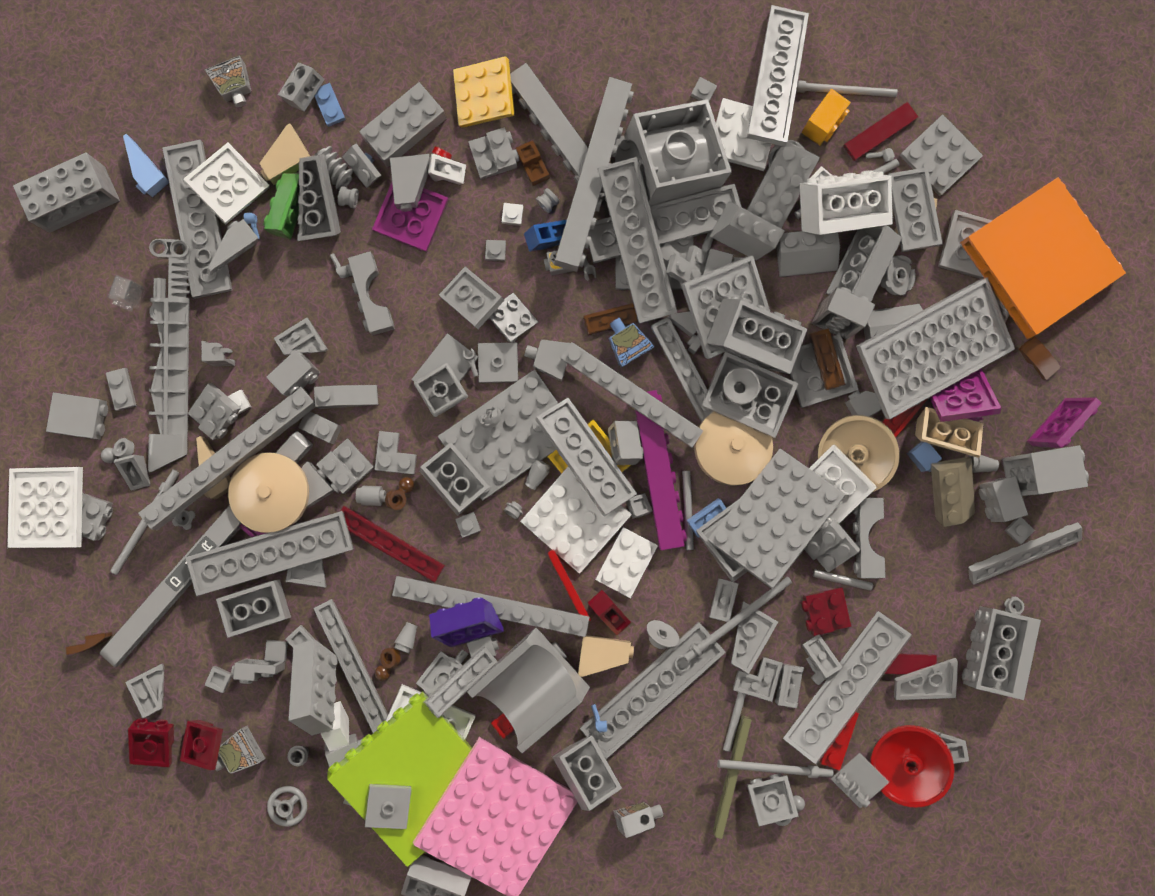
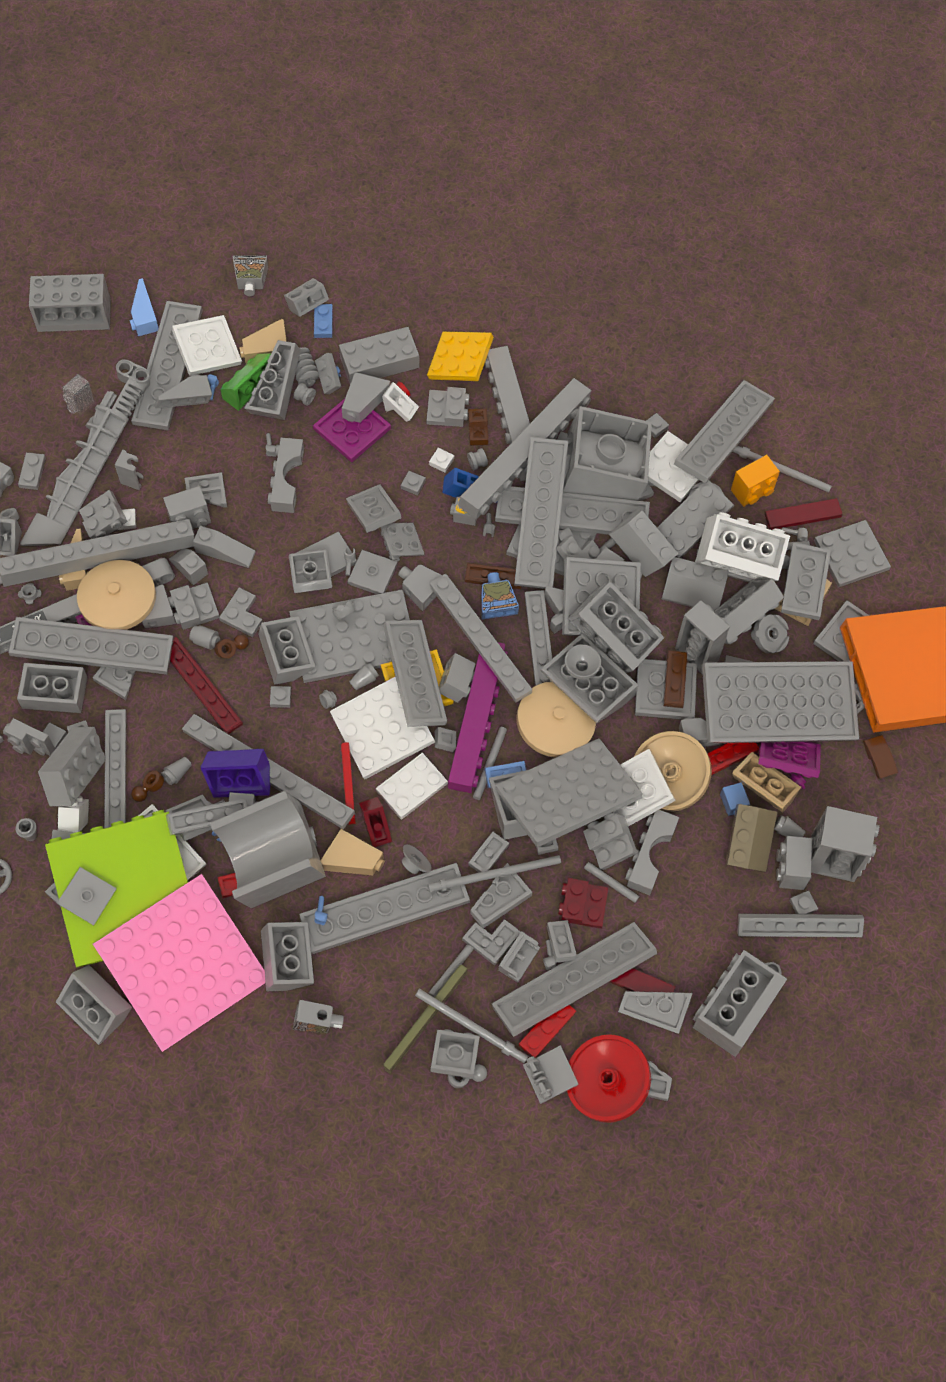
camera: 20 degrees right, 20 degrees down
(1064, 422) = (892, 807): magenta plate -> none

